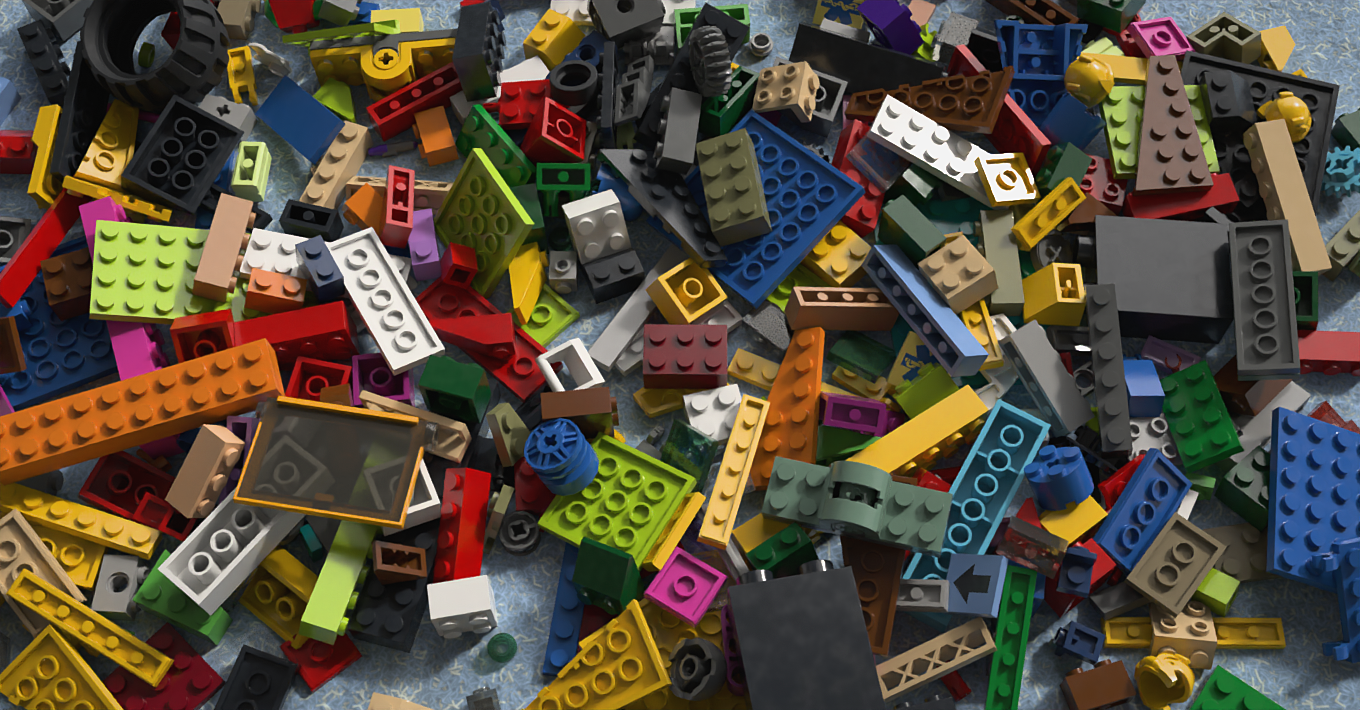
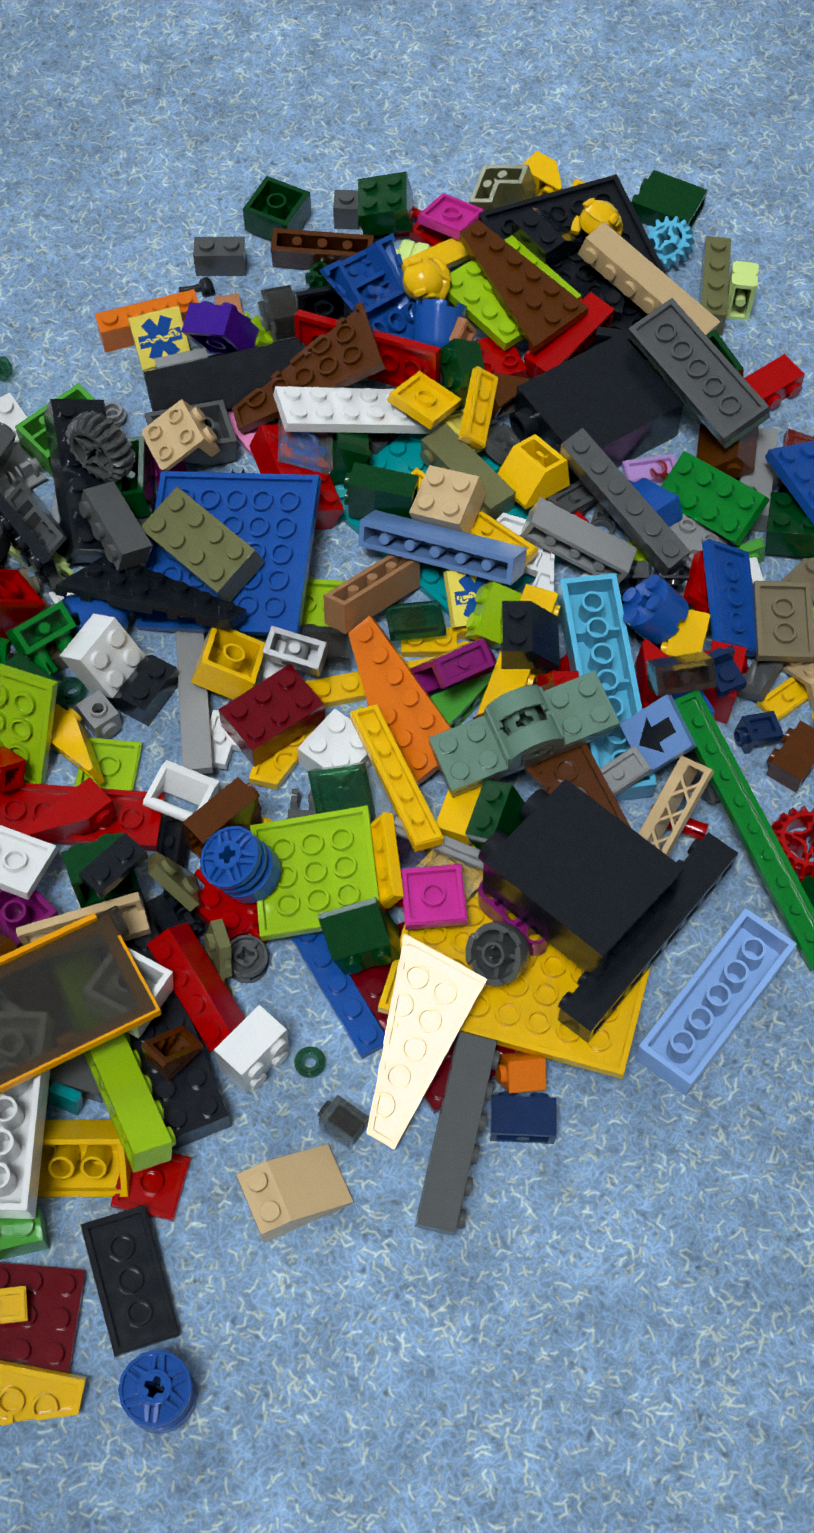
camera: 40 degrees left, 0 degrees up
(455, 391) = (113, 865): none -> black plate
(739, 317) = (295, 649): none -> light grey brick
(838, 257) = (334, 551): yellow brick -> none
(930, 429) = (528, 636): none -> black slope
(1086, 141) = (463, 330): none -> nougat tile

